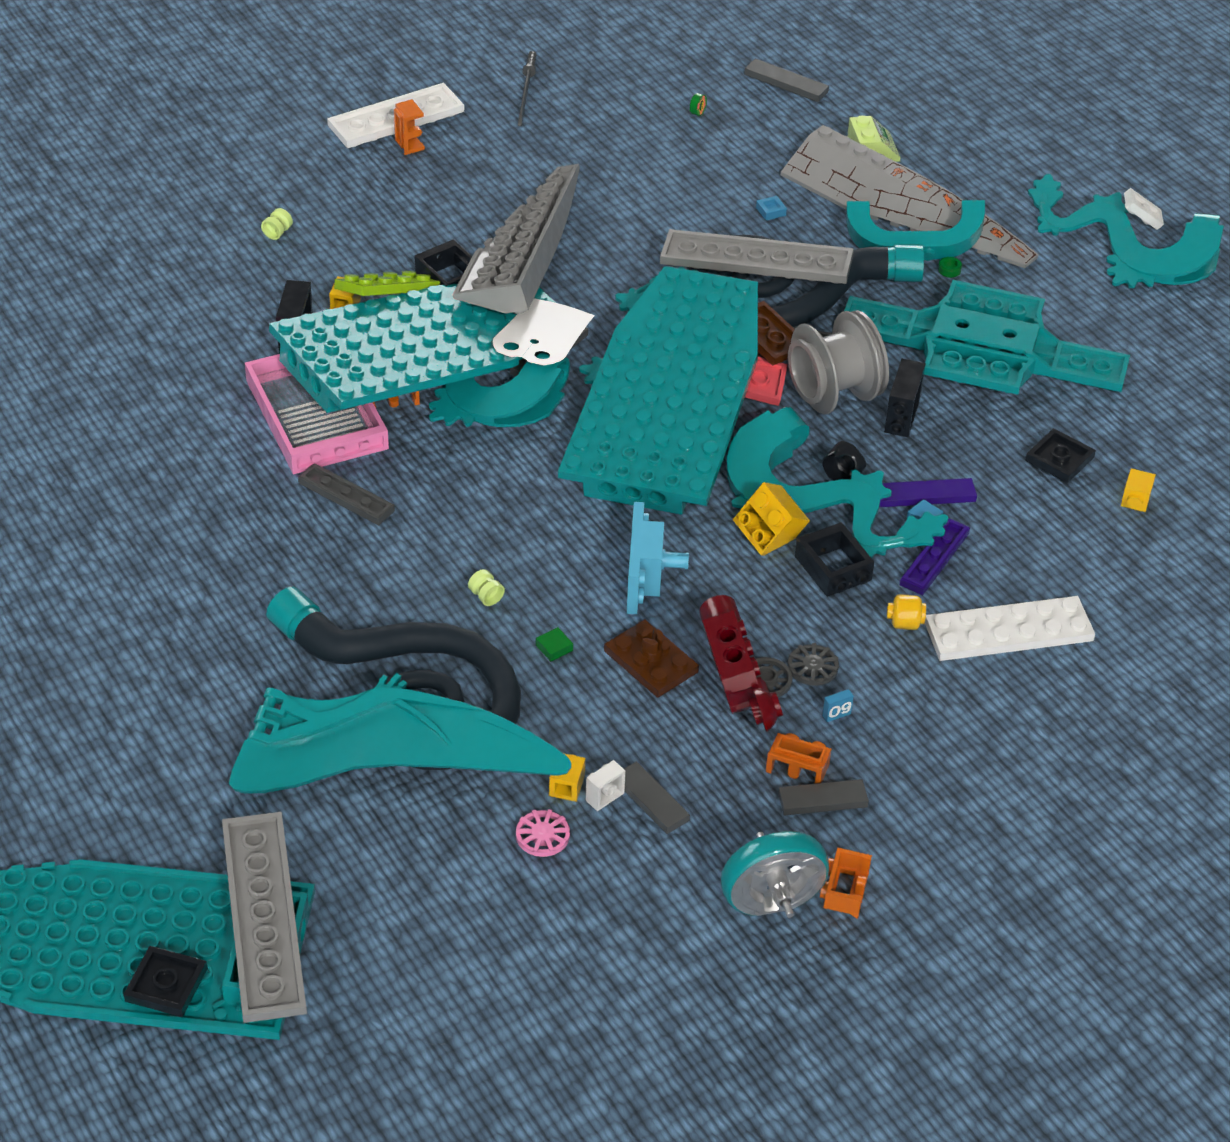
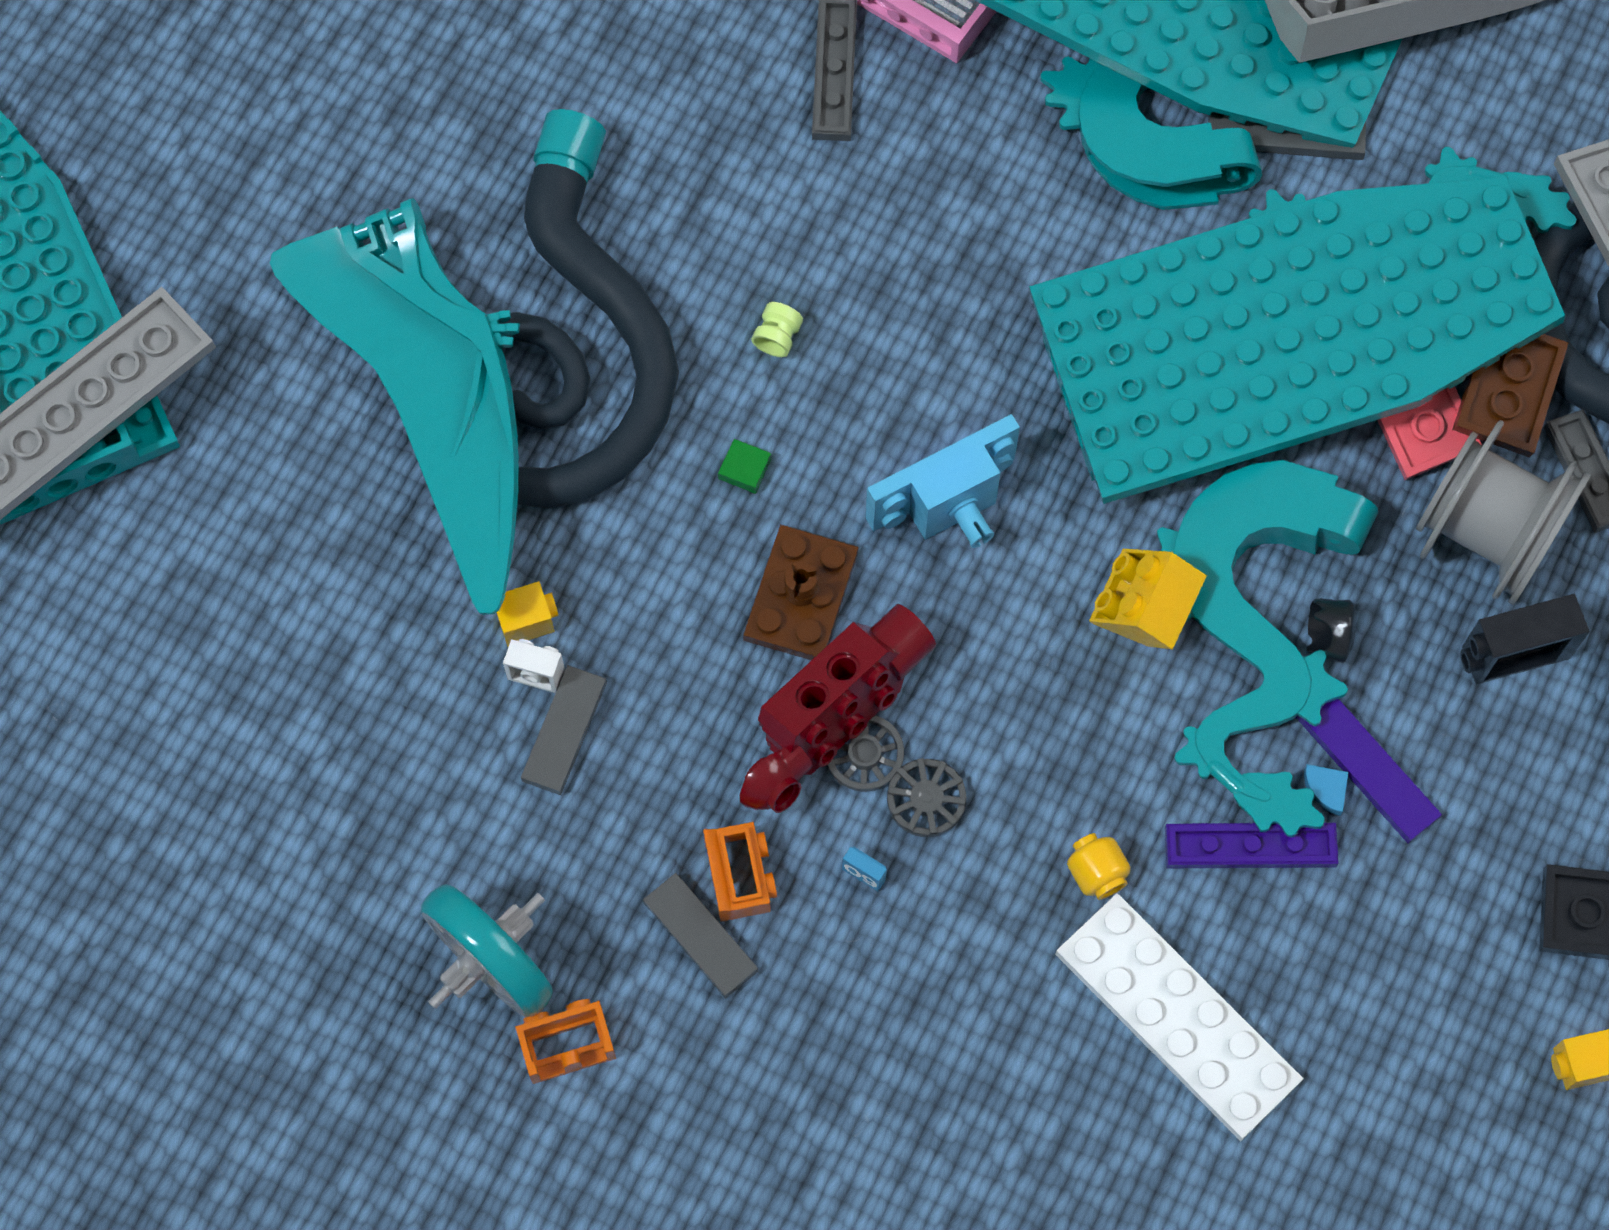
camera: 60 degrees right, 25 degrees up
(542, 833) = (424, 639): bright pink wheel -> none
(549, 323) = (1302, 105): white piece -> none
(825, 541) = (1154, 684): black window -> none

